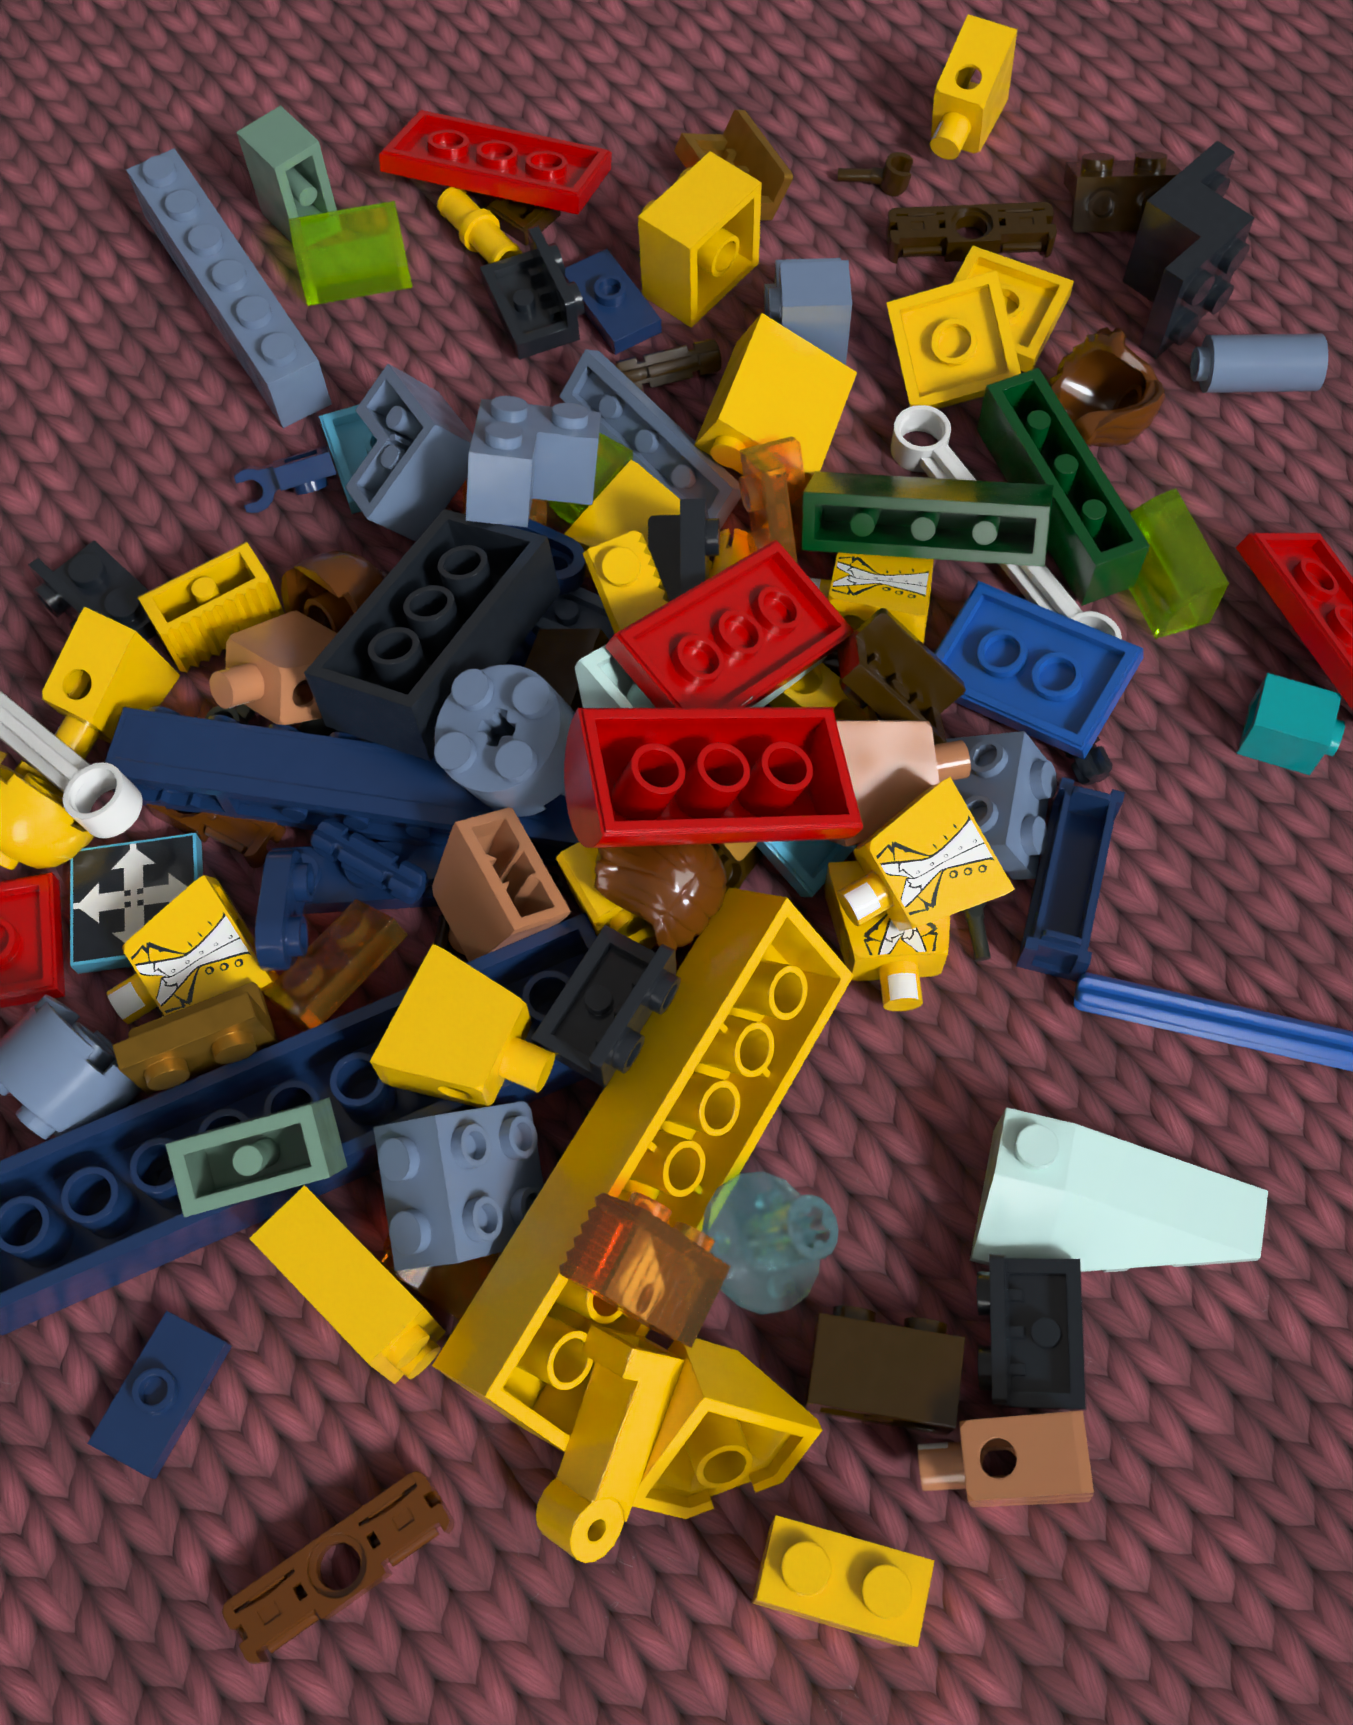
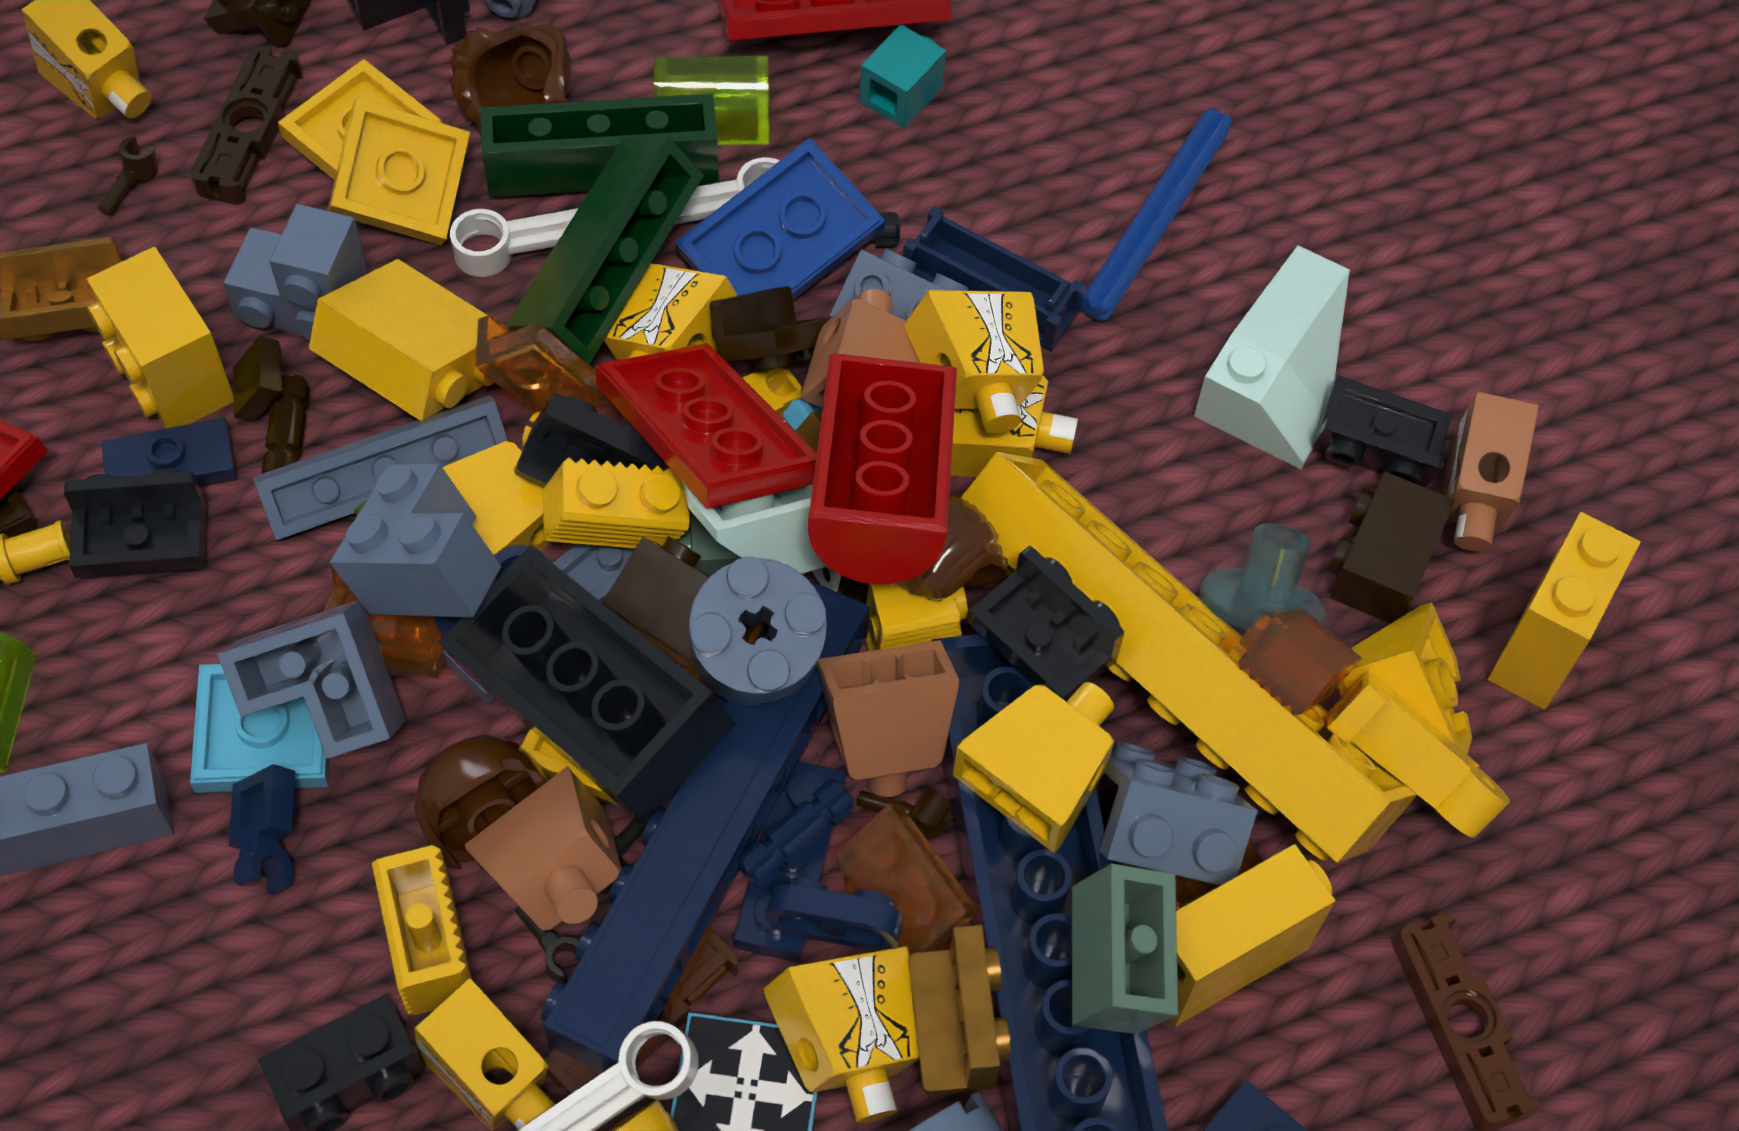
camera: 80 degrees left, 5 degrees down
(704, 325) = (257, 379): none -> dark brown tile

